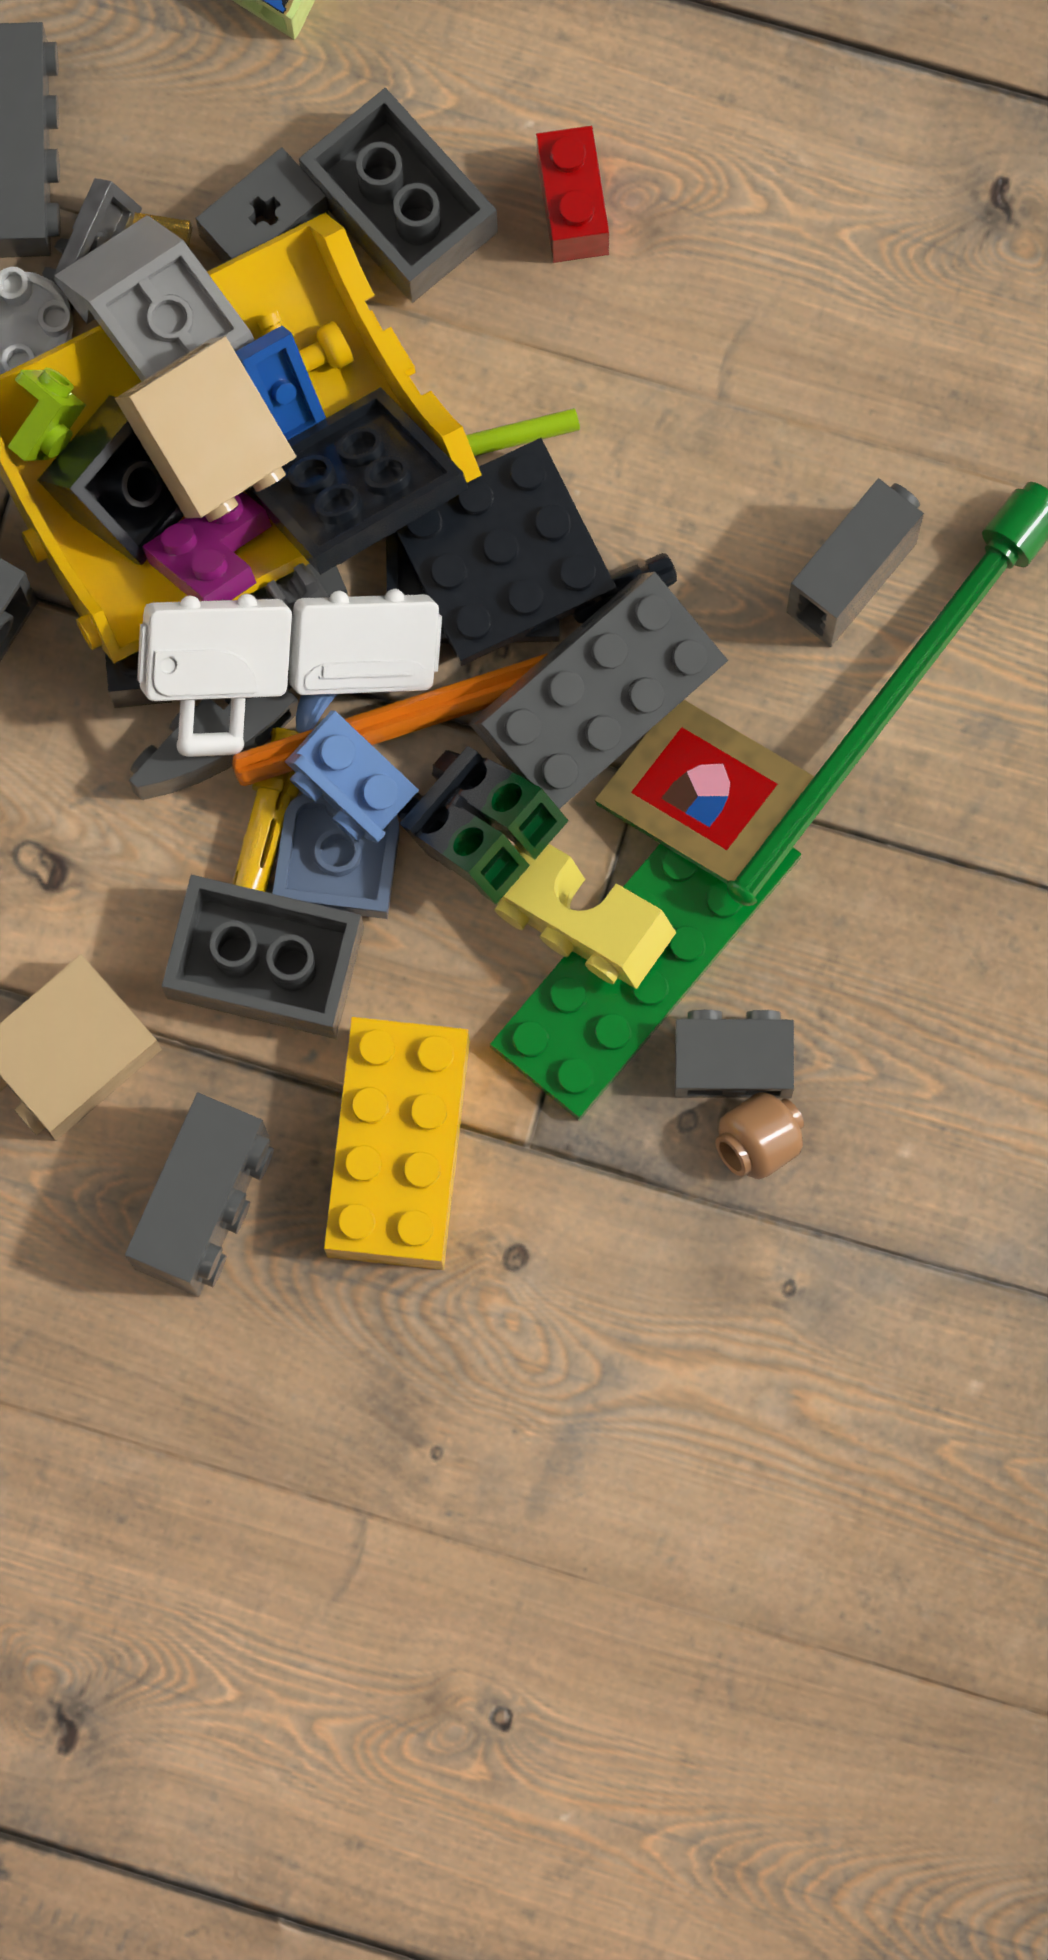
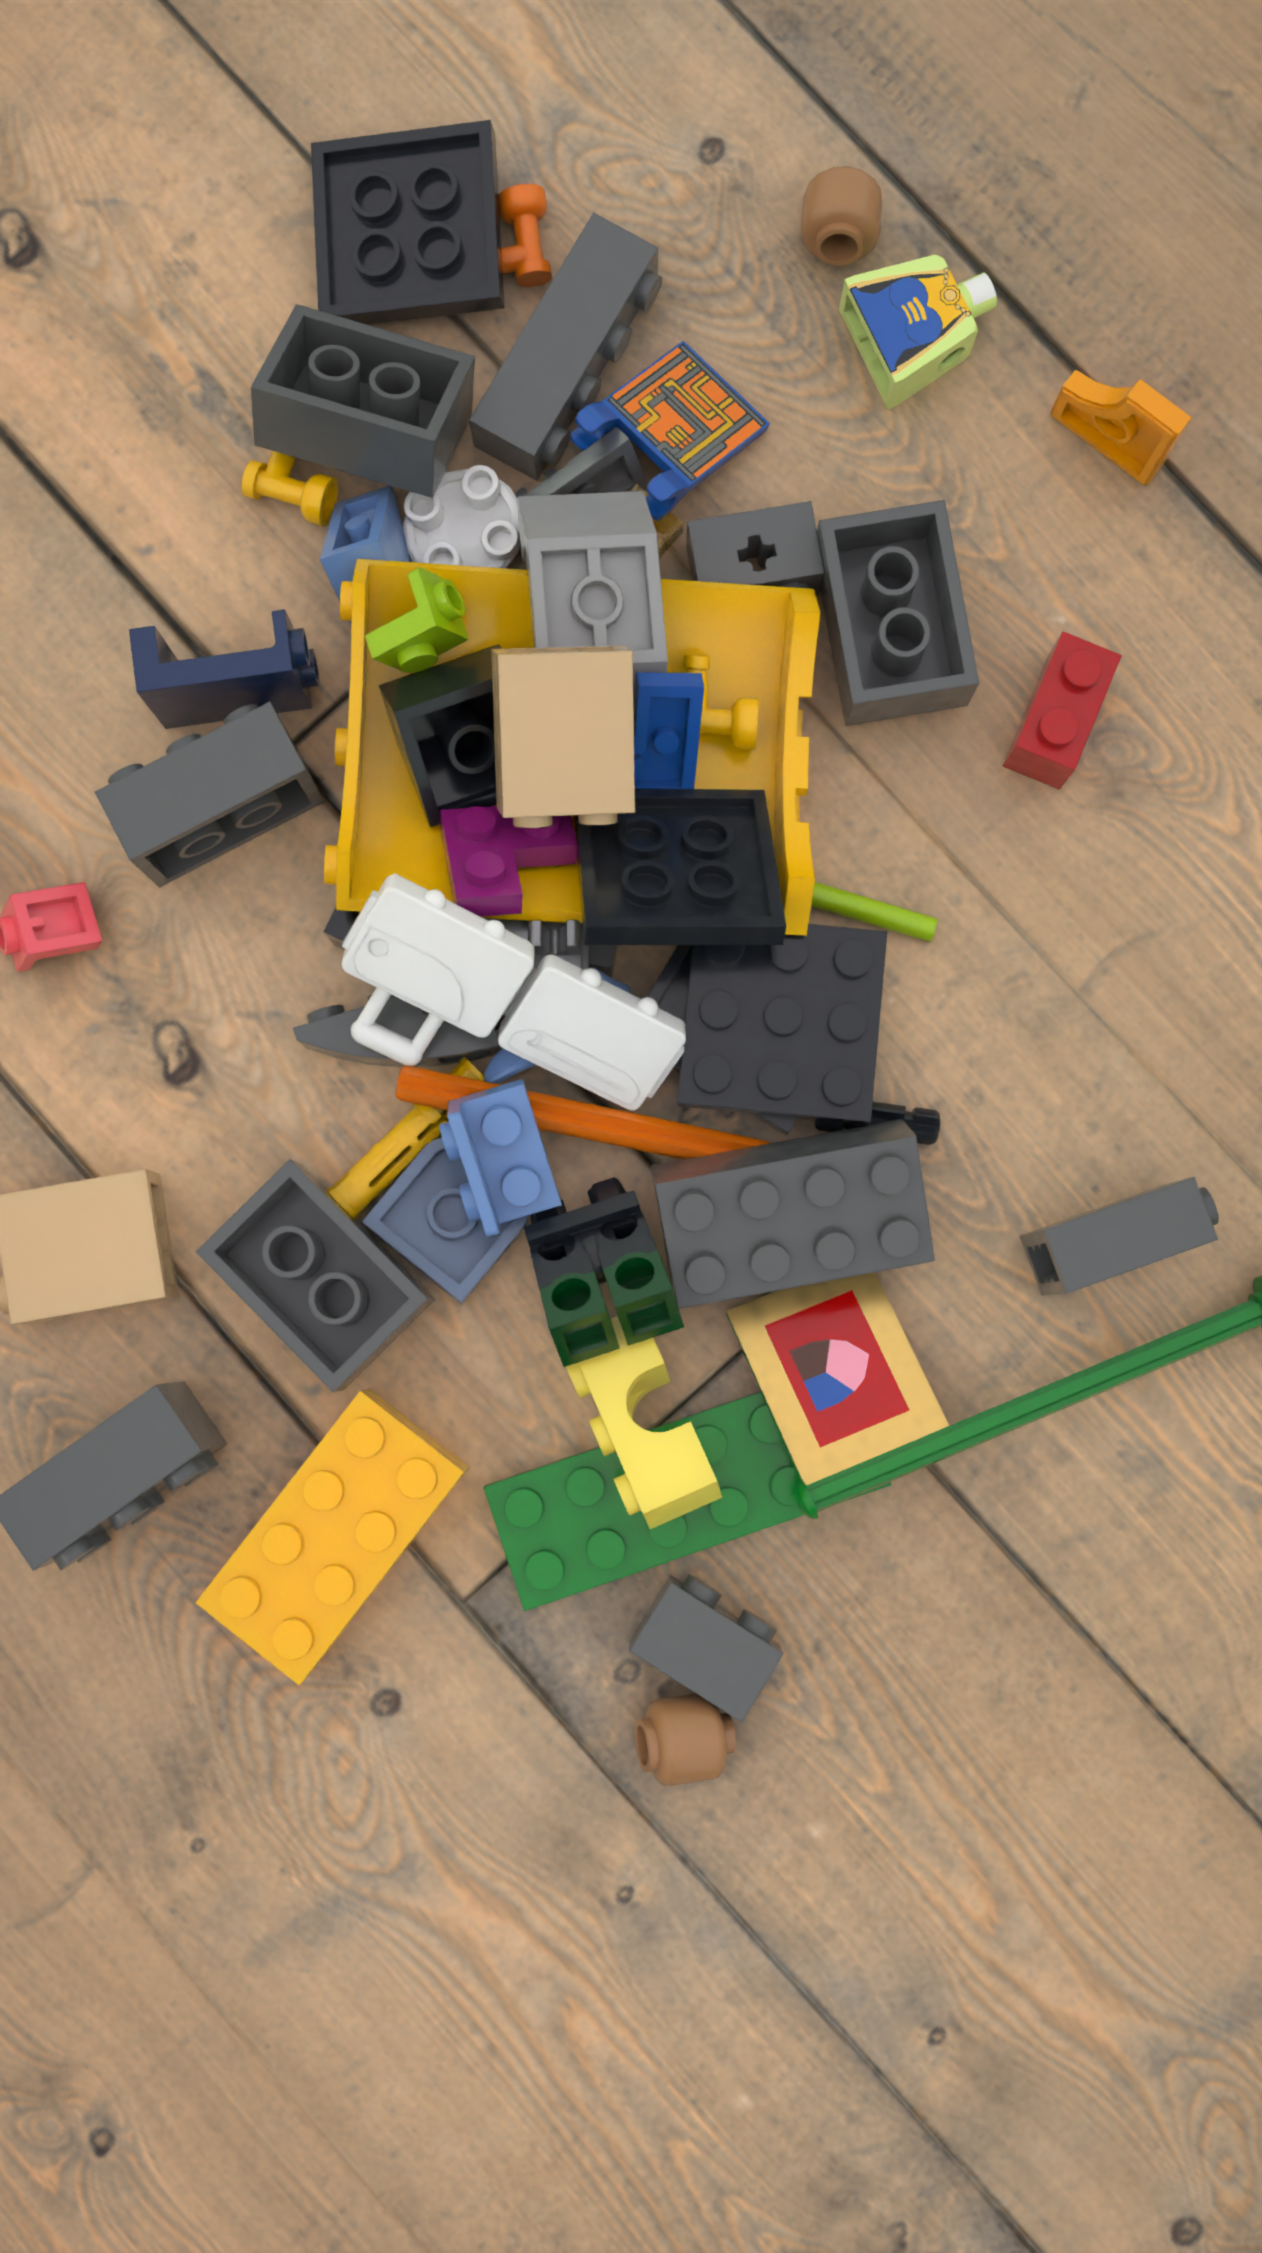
camera: 30 degrees right, 5 degrees up
(136, 142) = (679, 418): none -> flag

